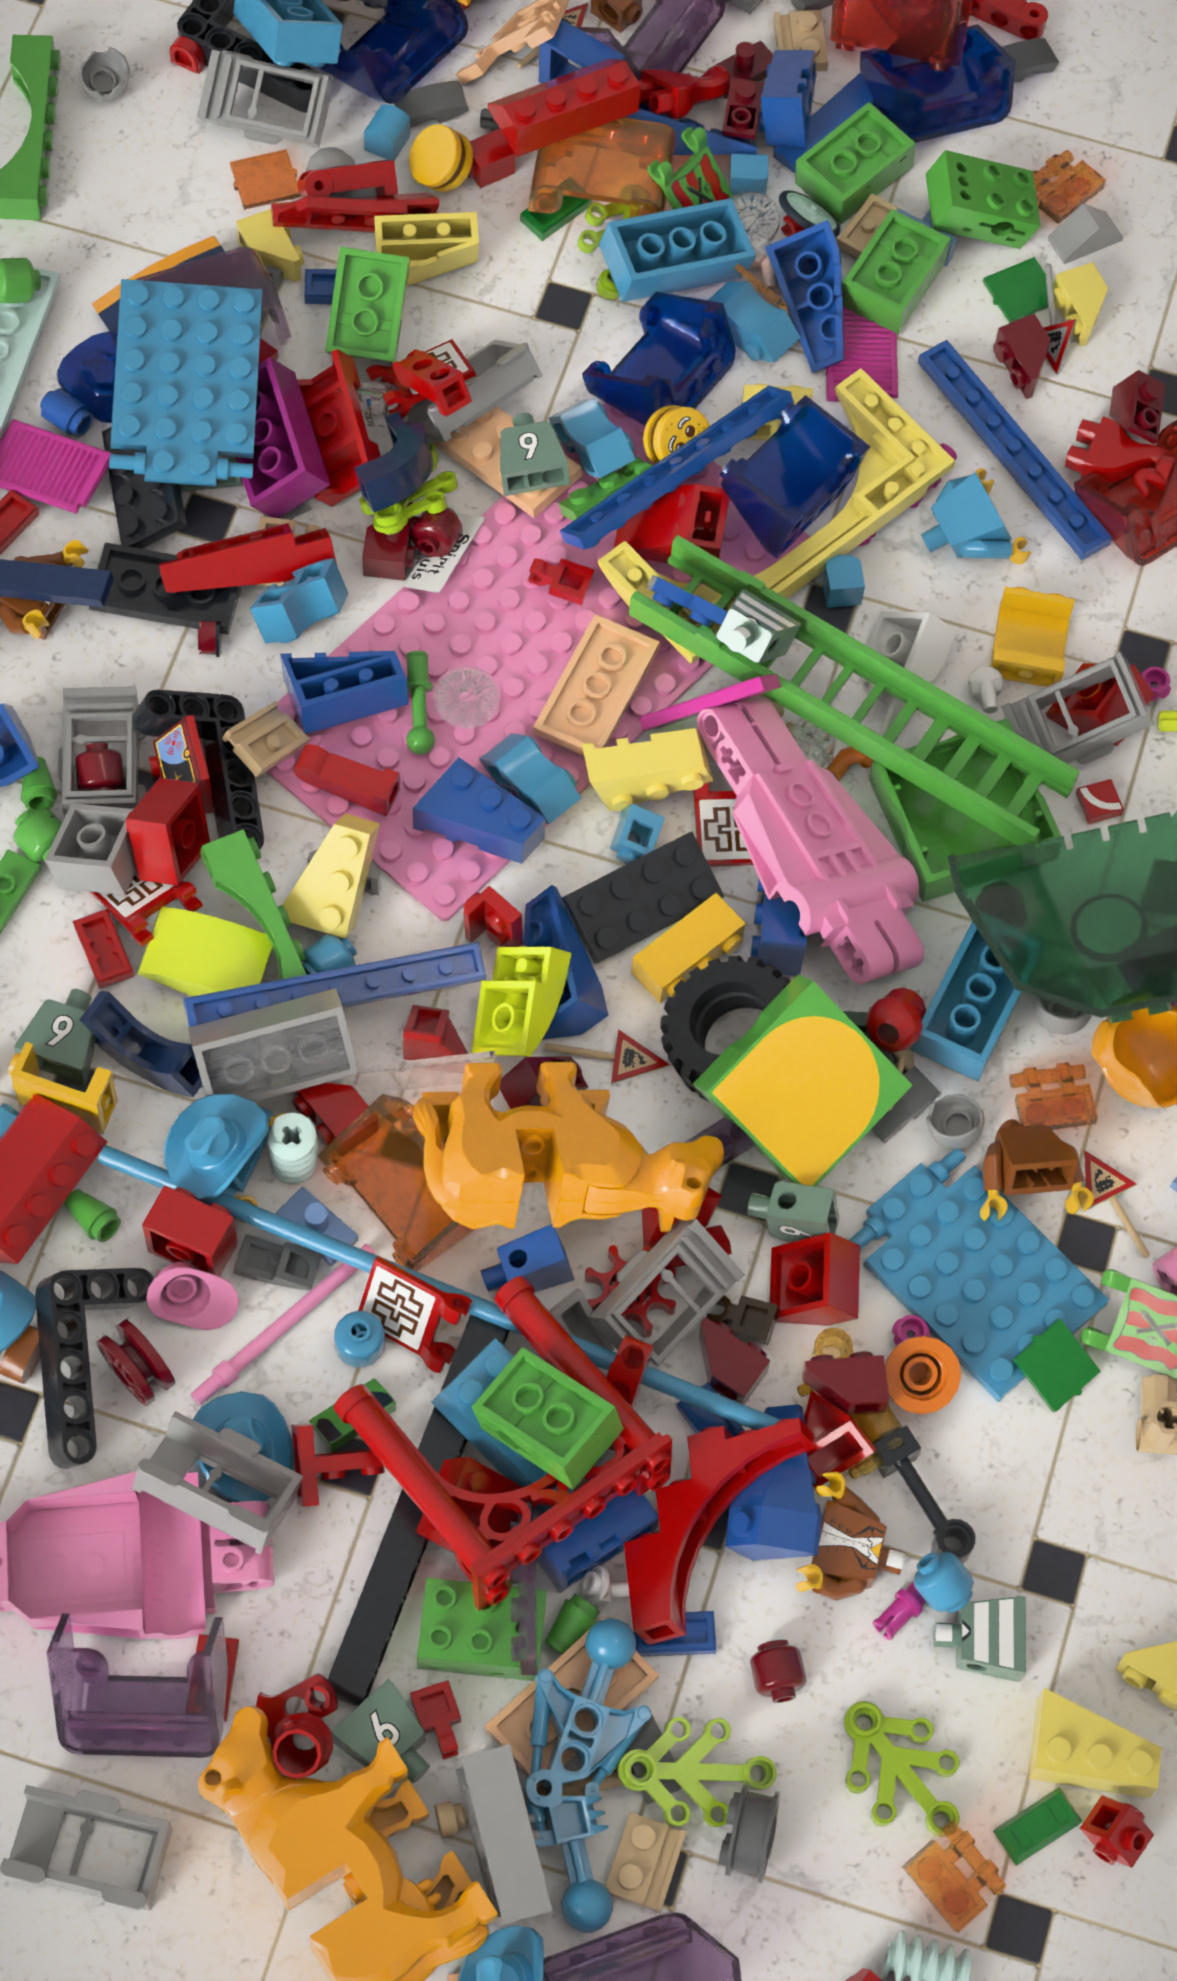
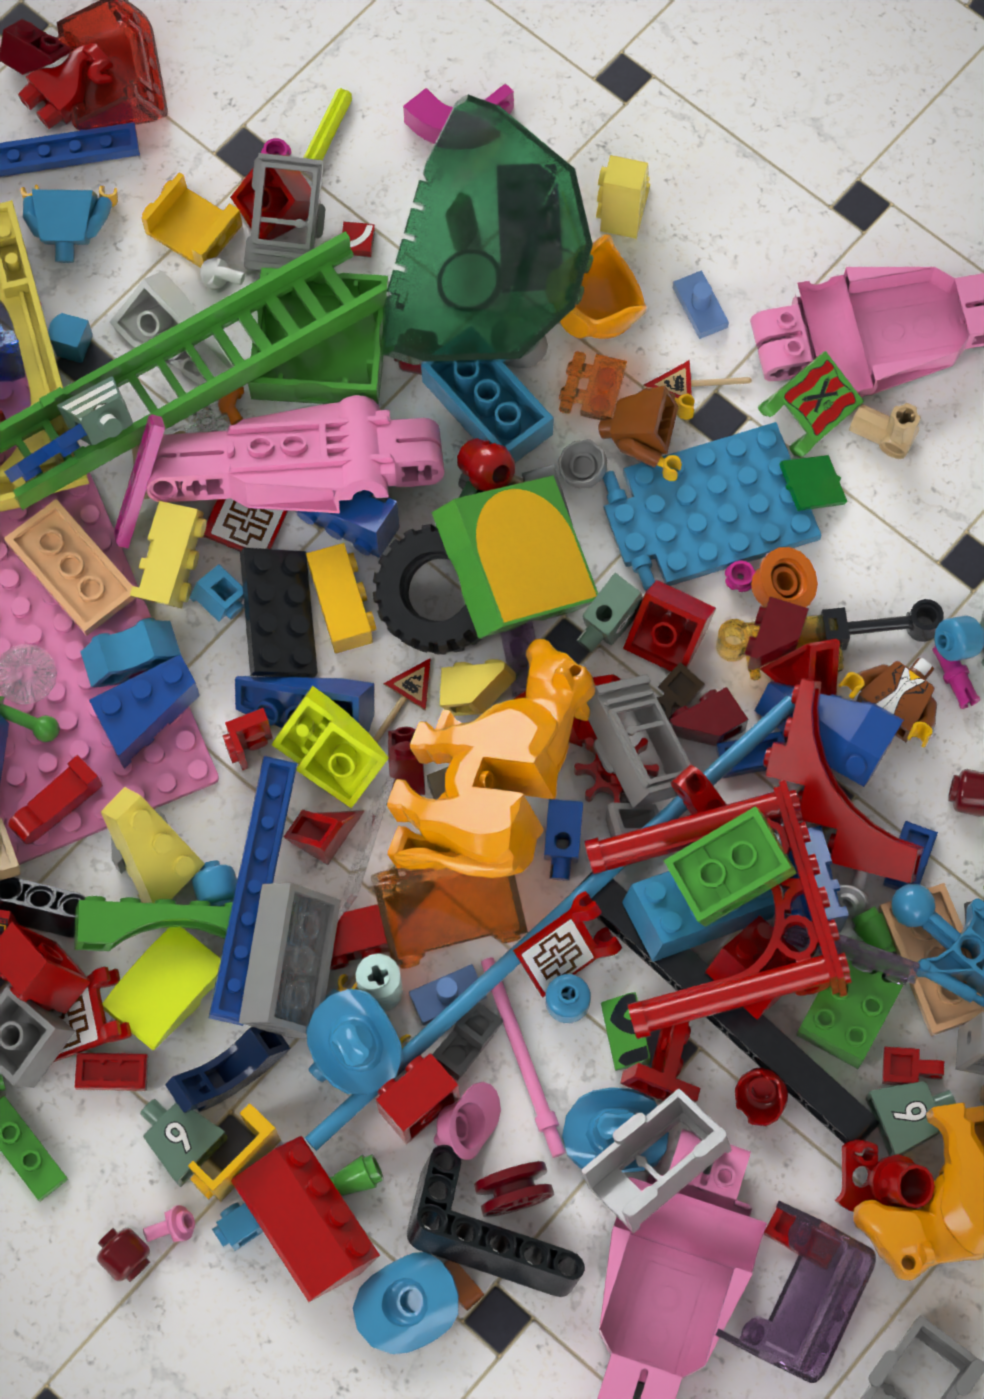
camera: 60 degrees left, 5 degrees up
(339, 1573) = (761, 1096): none -> red hair
(650, 1110) = (473, 688): none -> light yellow slope

